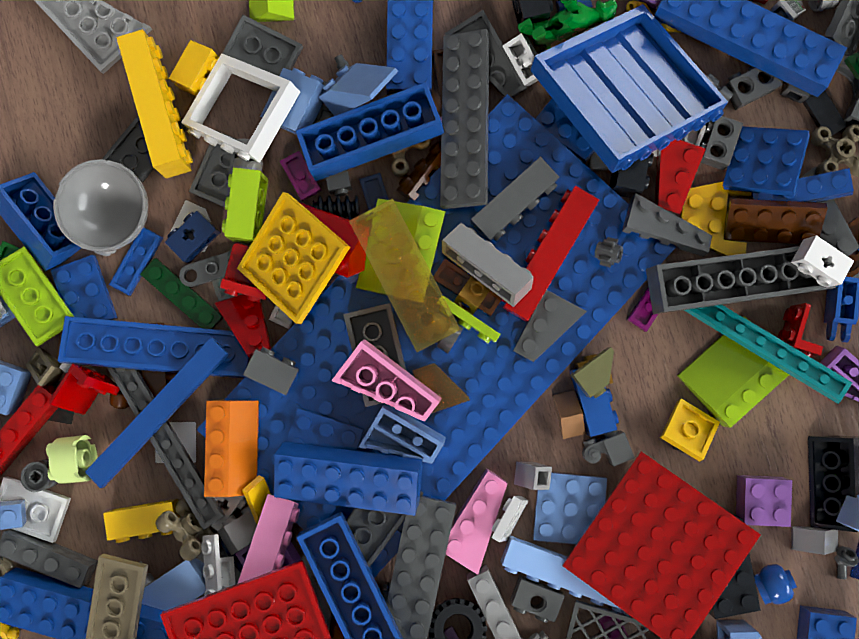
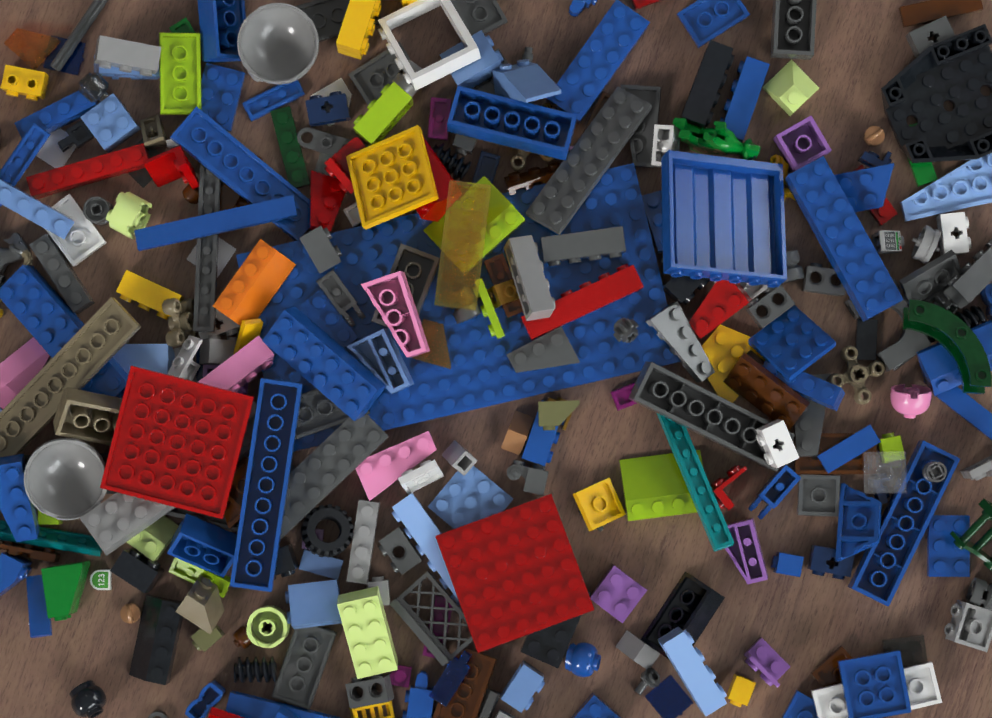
camera: 35 degrees right, 0 degrees up
(319, 403) = (339, 296): none -> dark grey hinge

